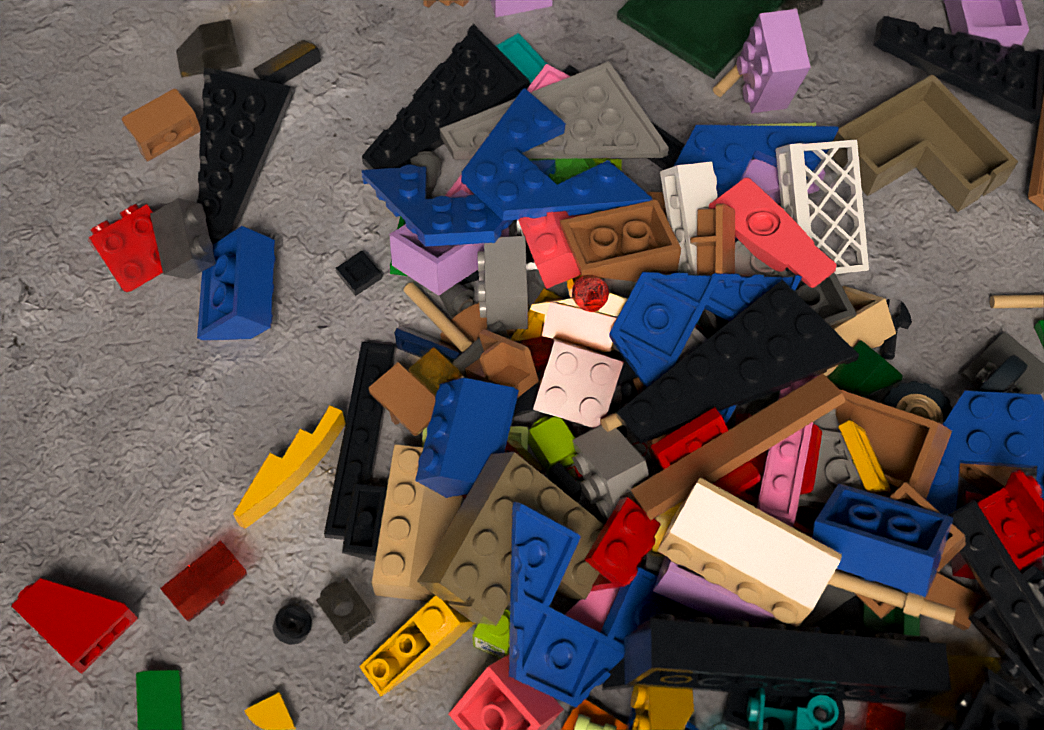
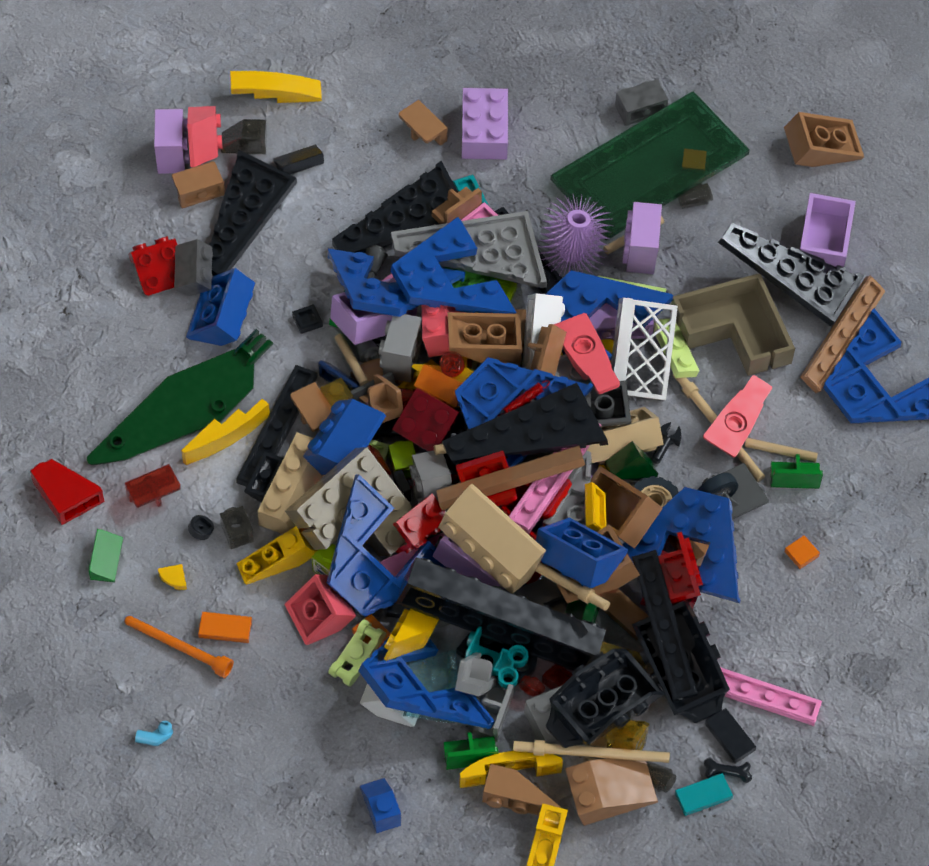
camera: 15 degrees right, 5 degrees down
(109, 73) = (171, 141): none -> lavender brick
(150, 55) = (202, 134): none -> coral slope
(218, 439) = (185, 402): none -> dark green wing
(514, 75) = (457, 205): none -> medium nougat panel
(681, 79) = (575, 235): none -> lavender piece
(713, 320) = (525, 397): none -> red piece
(877, 215) = (682, 361): none -> yellowish green plate
(897, 250) = (692, 391): none -> tan bar
(974, 271) = (738, 417): none -> coral piece

